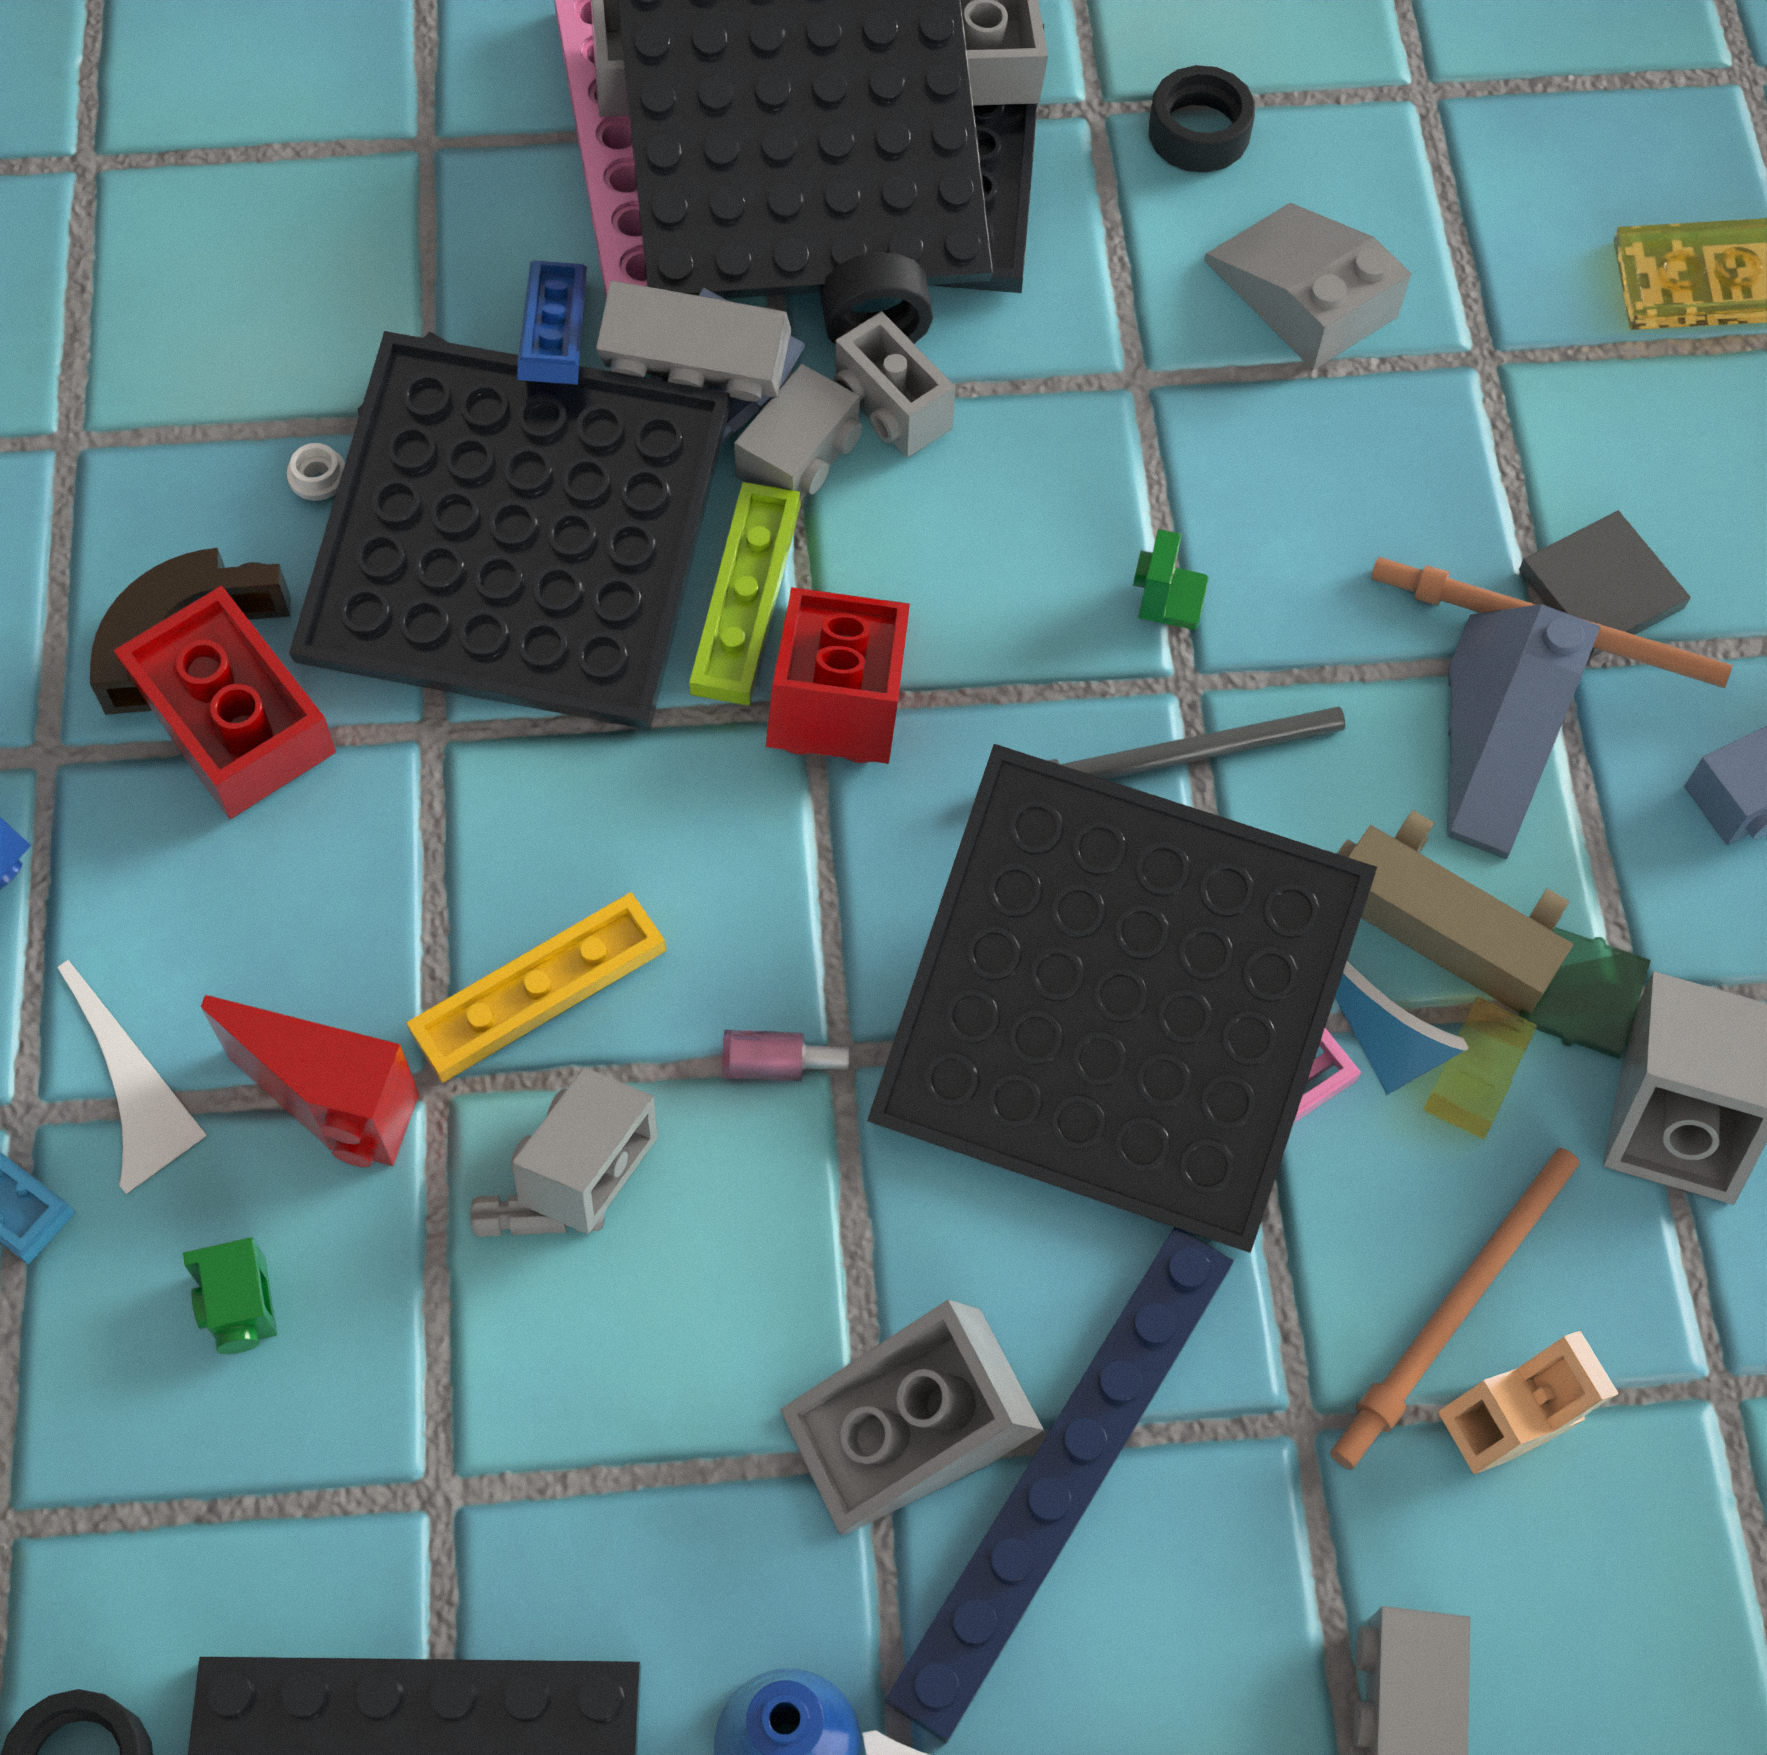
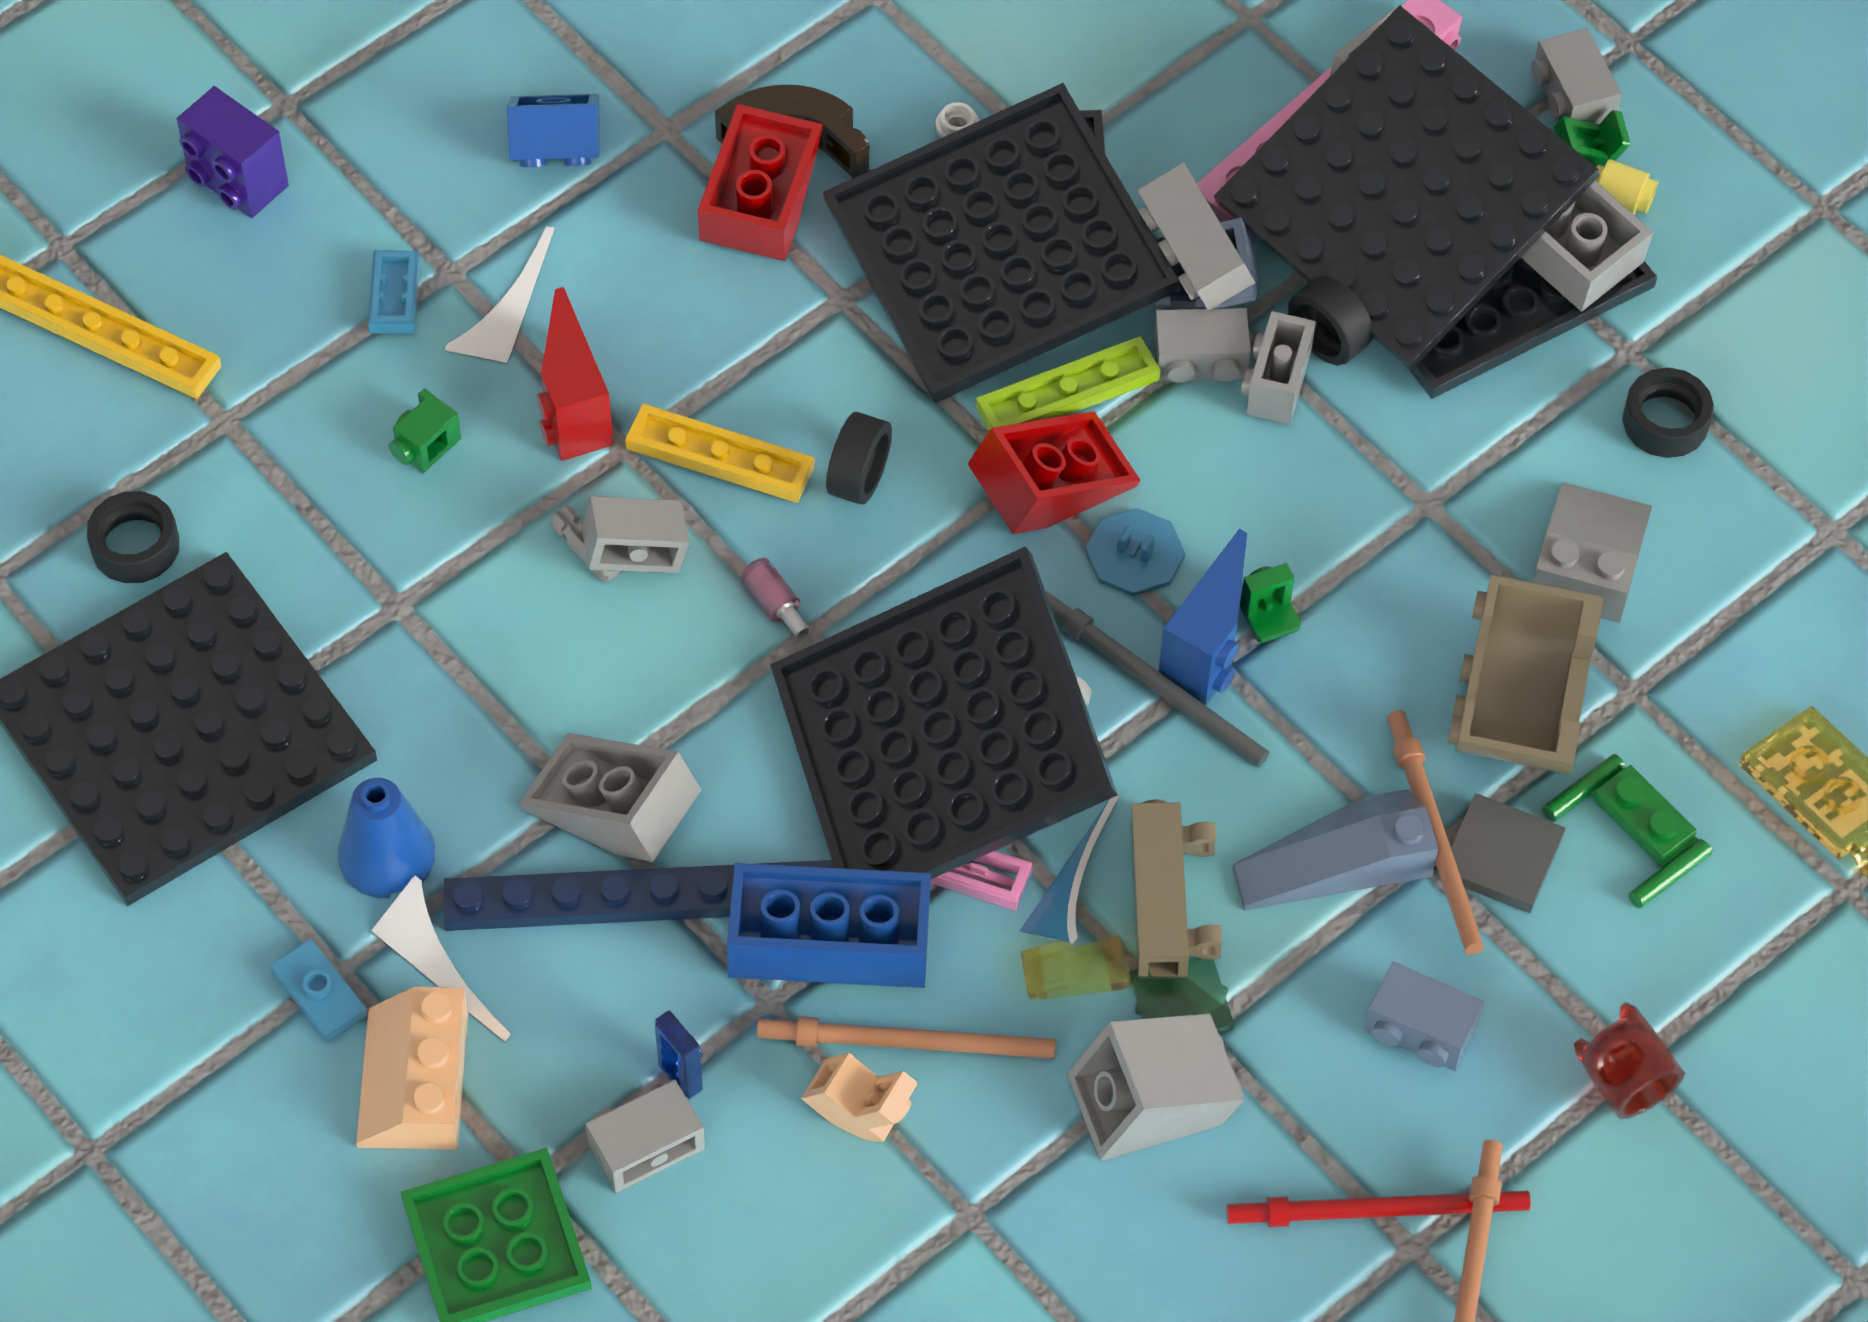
camera: 55 degrees right, 5 degrees down
(552, 323) = (1135, 165): blue tile -> none
(679, 845) = (859, 458): none -> black tyre
(990, 668) = (1135, 552): none -> dark azure piece
(1168, 645) = (1202, 632): none -> blue slope
(1275, 1287) = (829, 925): none -> blue slope
(1351, 1577) = (678, 1054): none -> clear blue plate
(1442, 431) = (1526, 674): none -> dark tan cylinder
(1645, 440) = (1643, 816): none -> green plate

